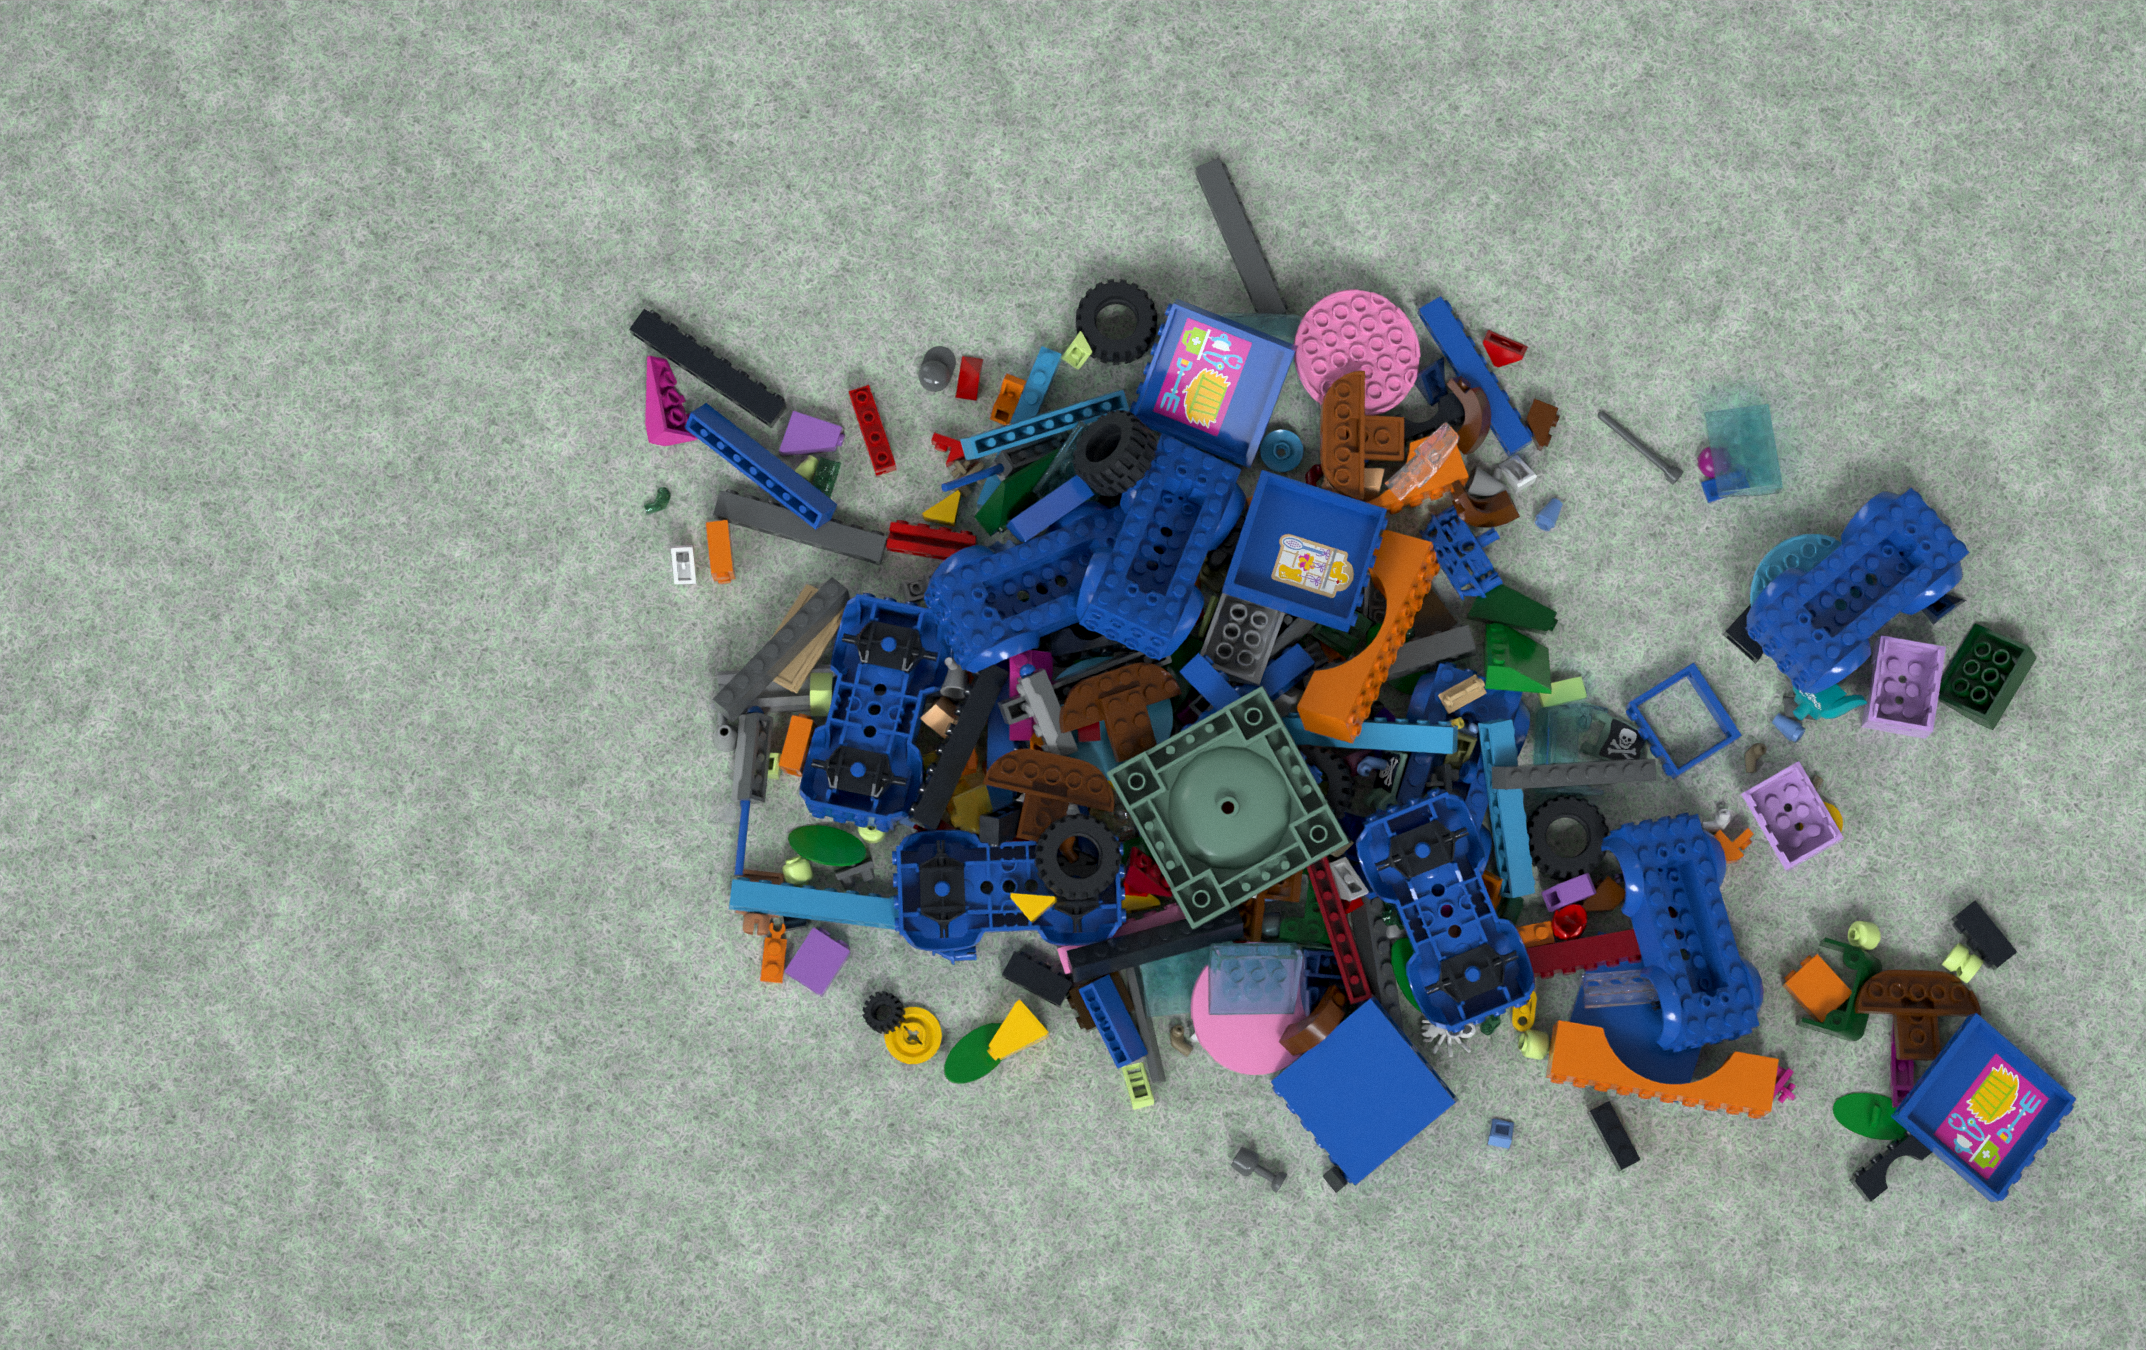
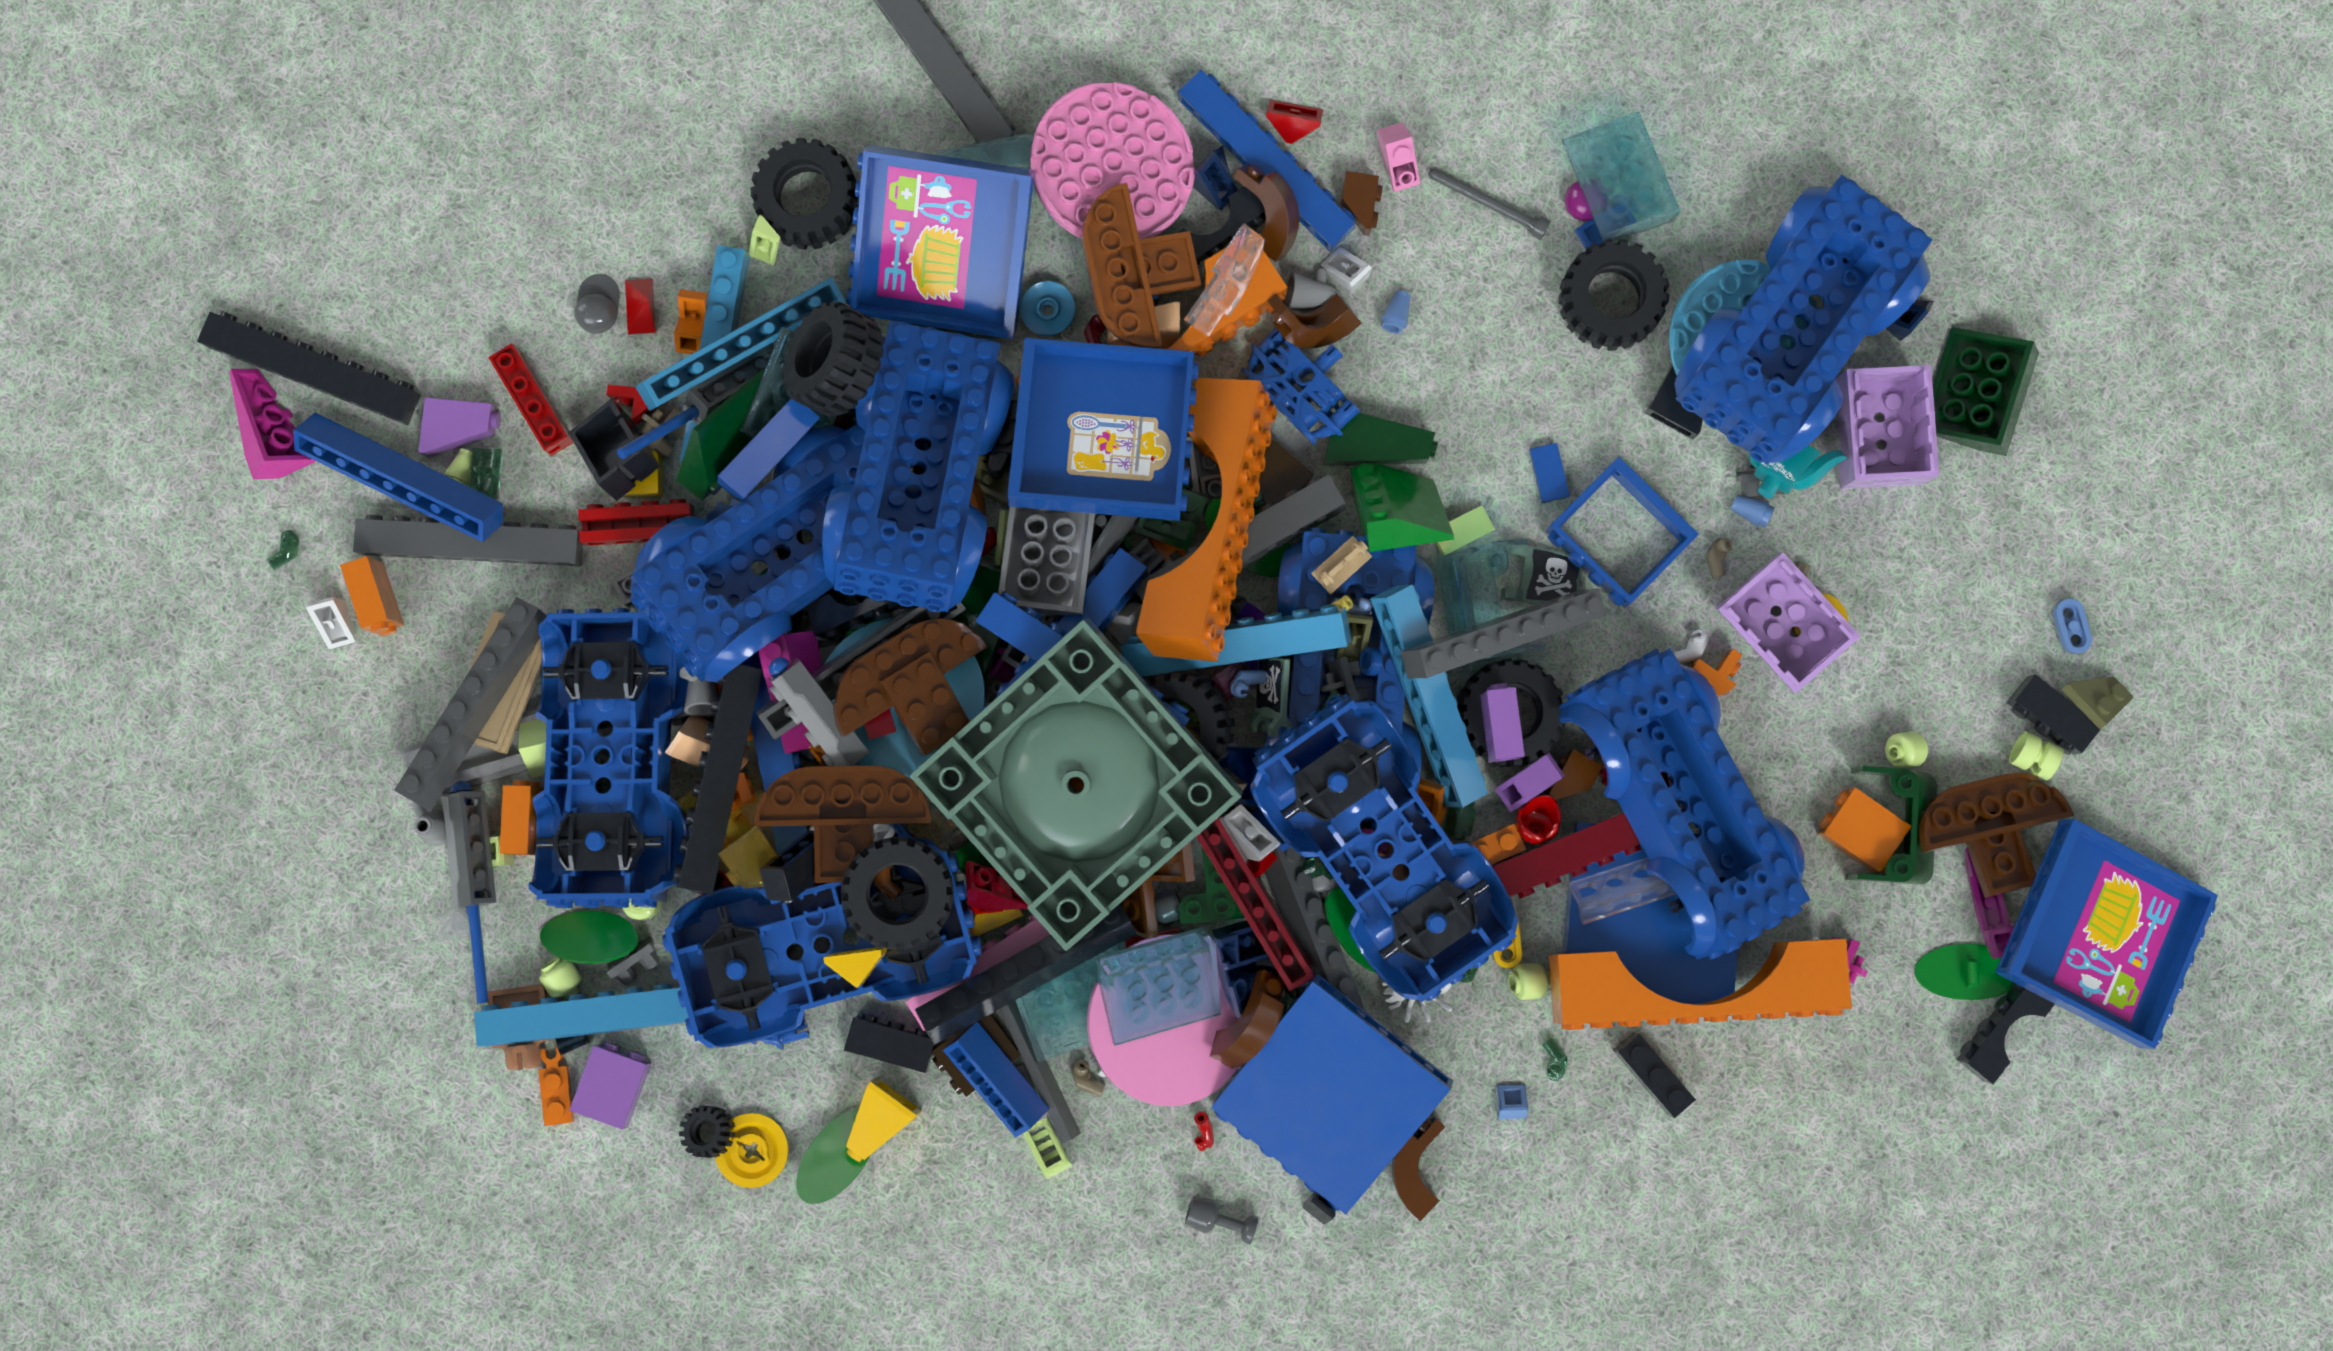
camera: 10 degrees left, 5 degrees up
(924, 476) = (598, 442): none -> black piece
(1262, 1097) = (1205, 1126): none -> red arm
(1407, 1166) = (1405, 1170): none -> reddish brown arch
(1543, 1109) = (1558, 1060): none -> clear green arm
(1556, 840) = (1502, 723): none -> medium lavender brick
(1577, 396) = (1399, 156): none -> bright pink slope
(1638, 663) = (1549, 473): none -> blue tile
(1731, 514) = (1634, 266): none -> black tyre
(2014, 872) = (2075, 625): none -> medium blue plate
(2020, 930) = (2099, 698): none -> olive wing

